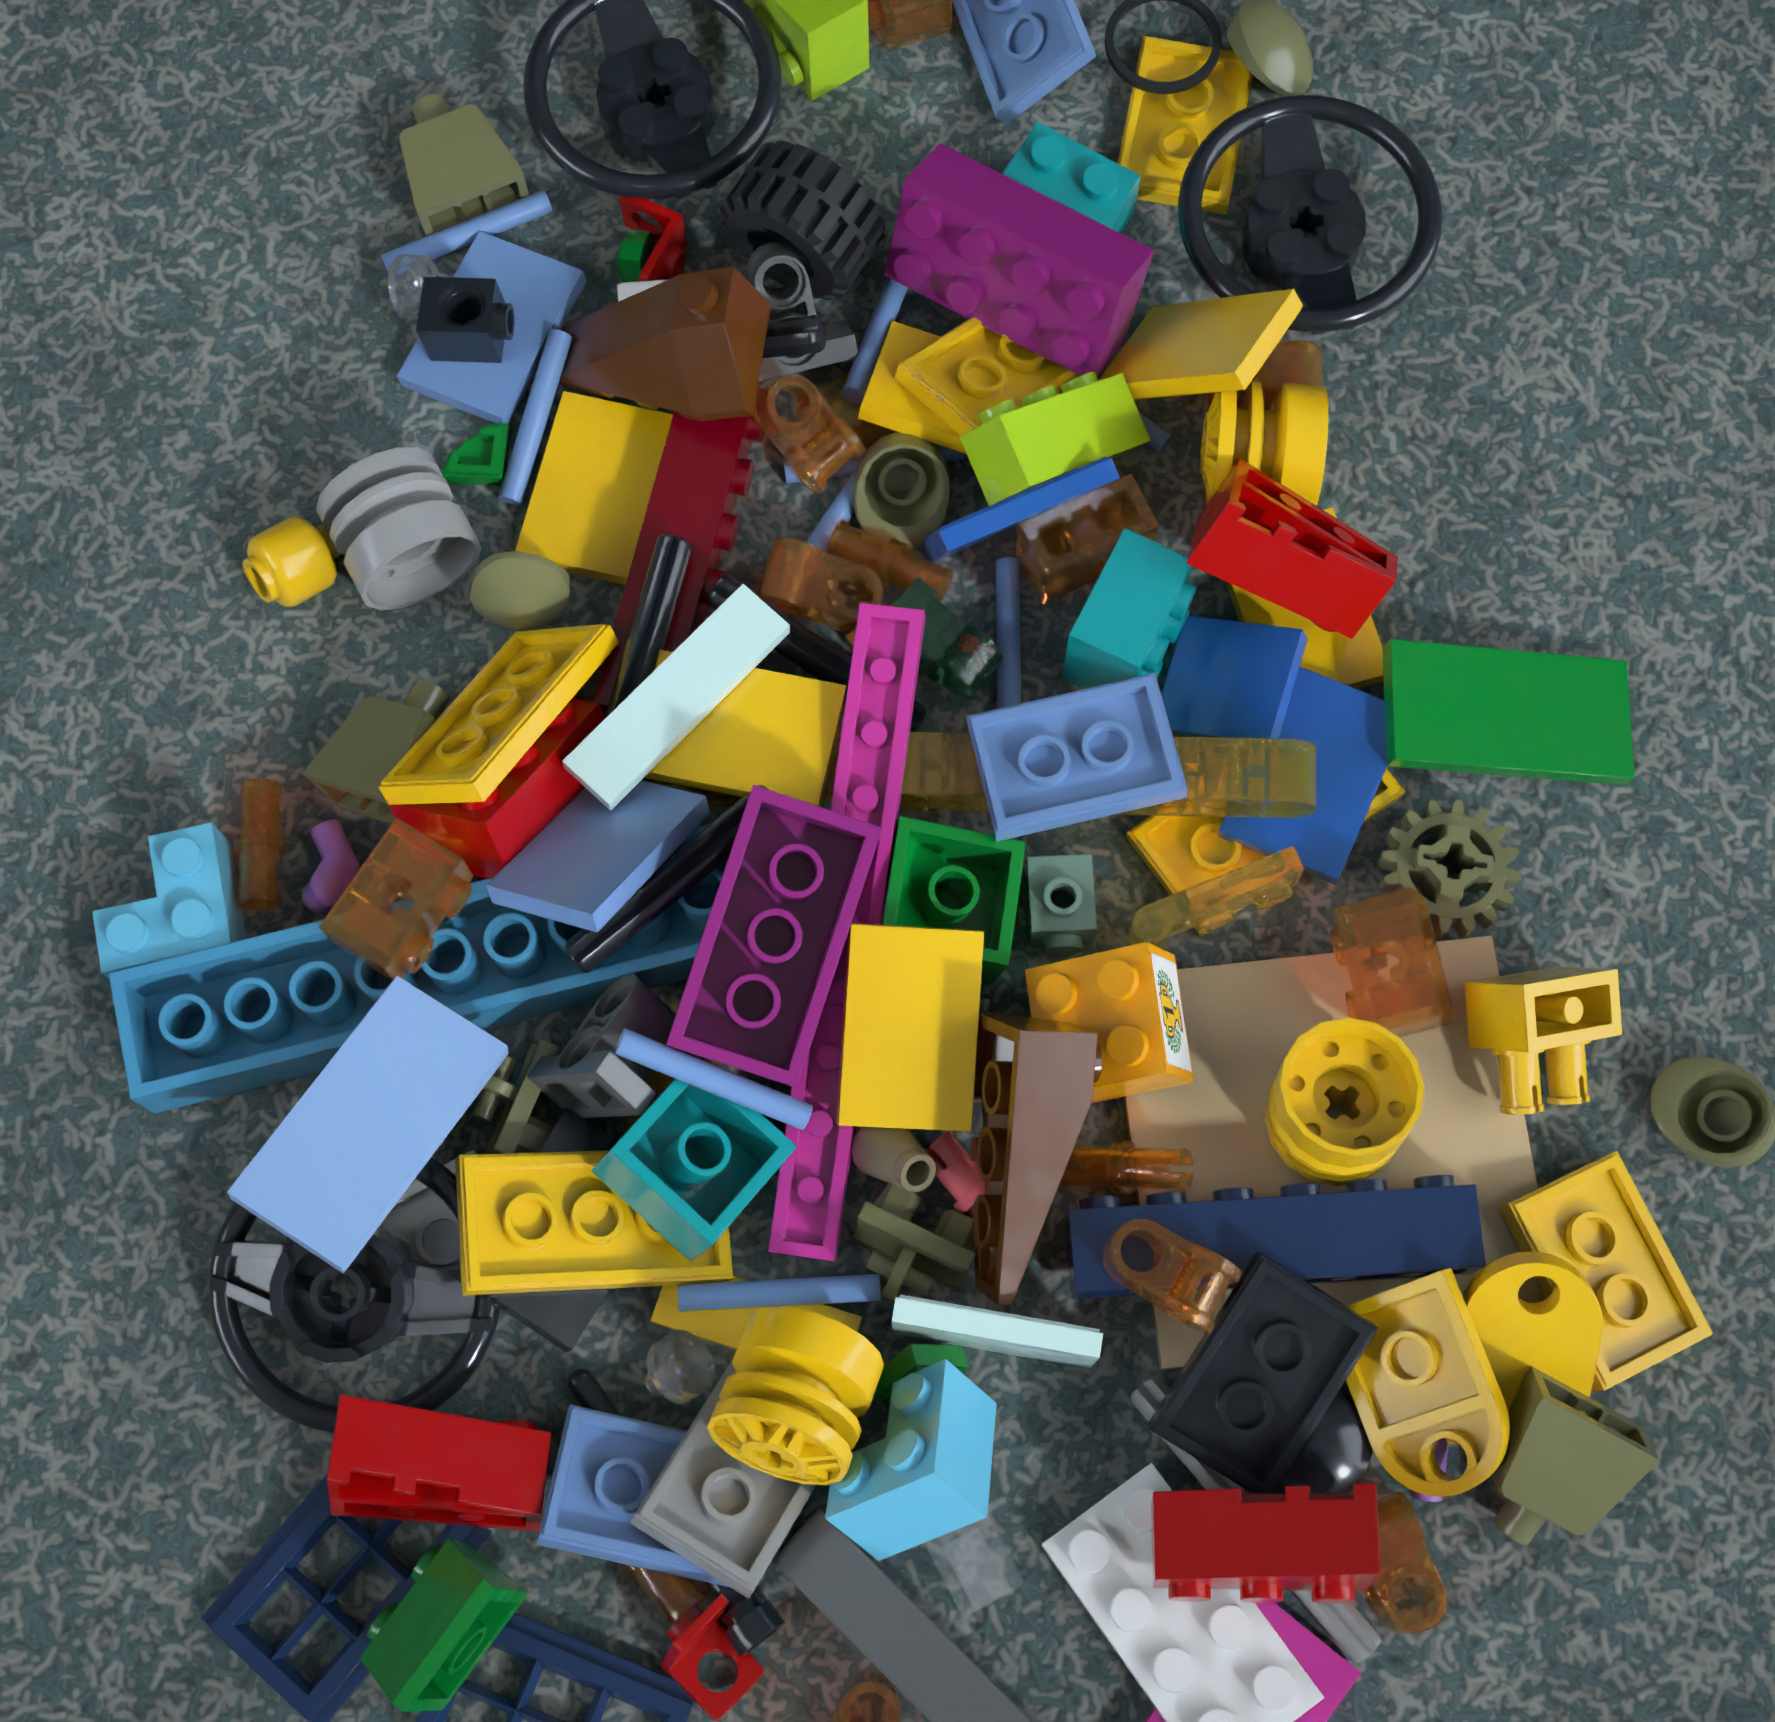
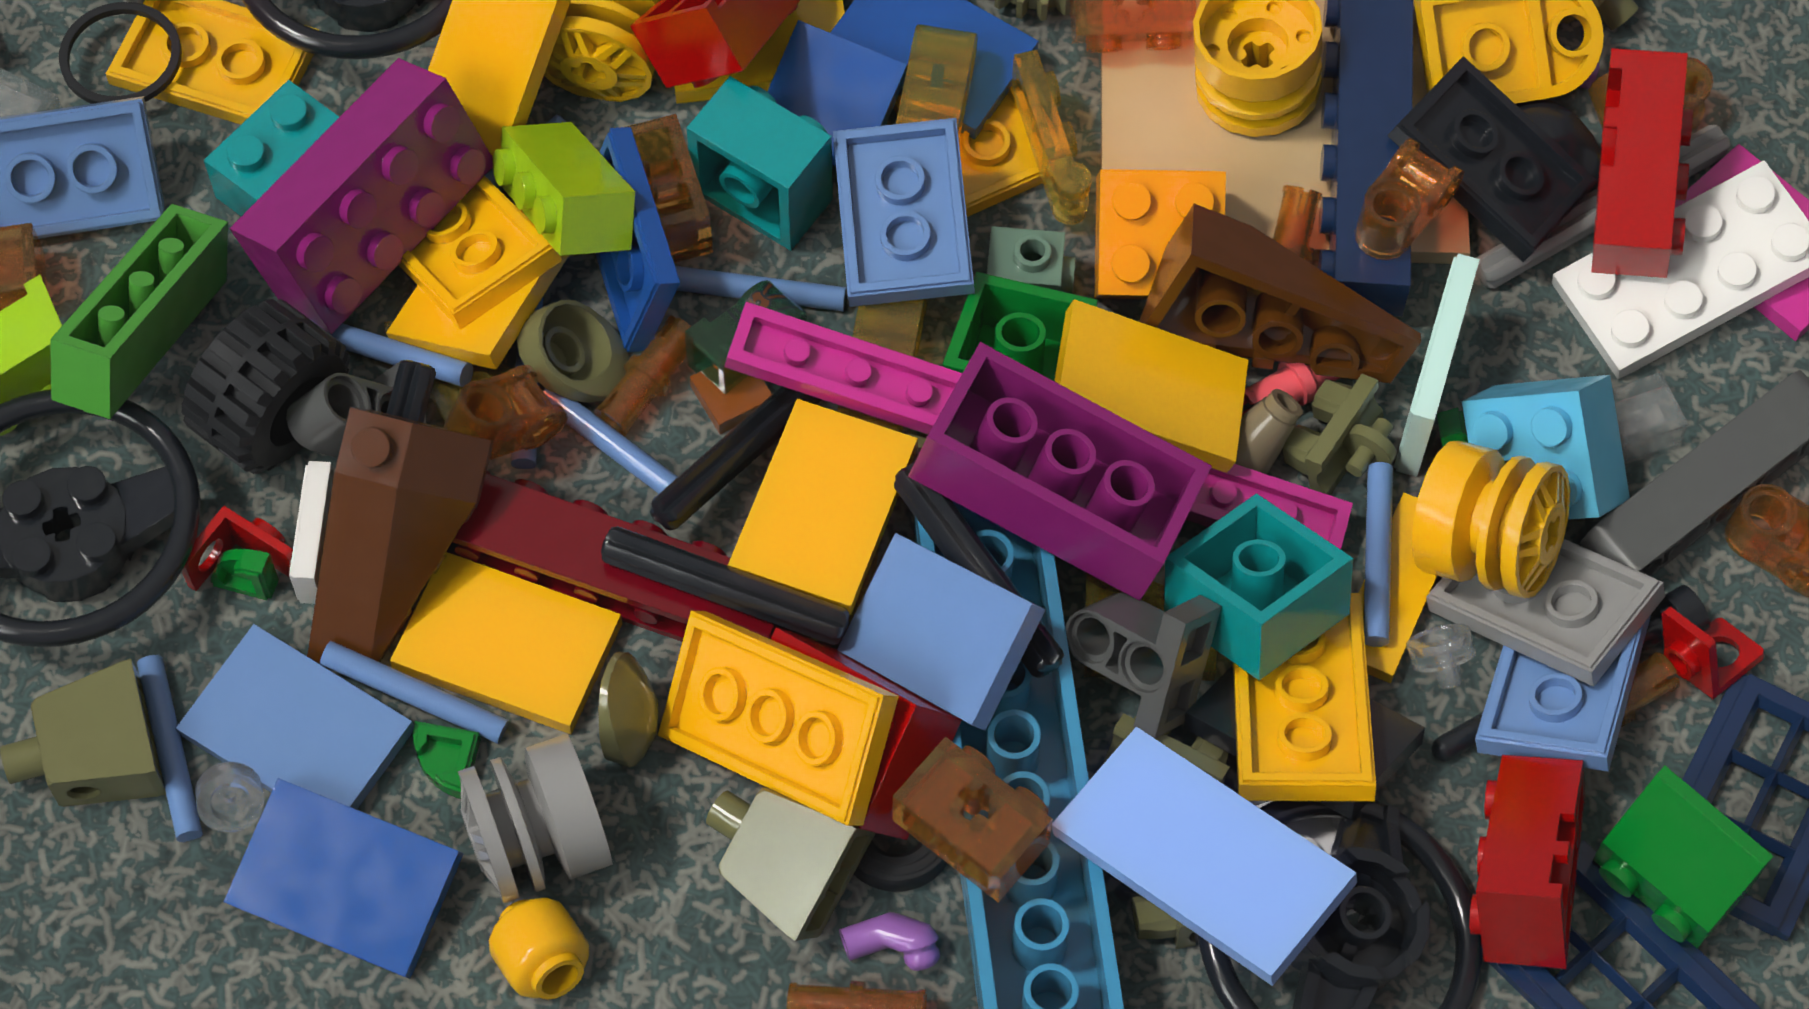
camera: 85 degrees left, 10 degrees down
(346, 389) = (343, 878): none -> blue tile
(449, 302) = (300, 760): black brick -> none
(676, 696) = (789, 545): light aqua tile -> none
(713, 1079) = (1192, 541): medium blue bar -> none
(811, 583) = (670, 427): clear orange piece -> none
(853, 92) = (138, 311): none -> bright green brick

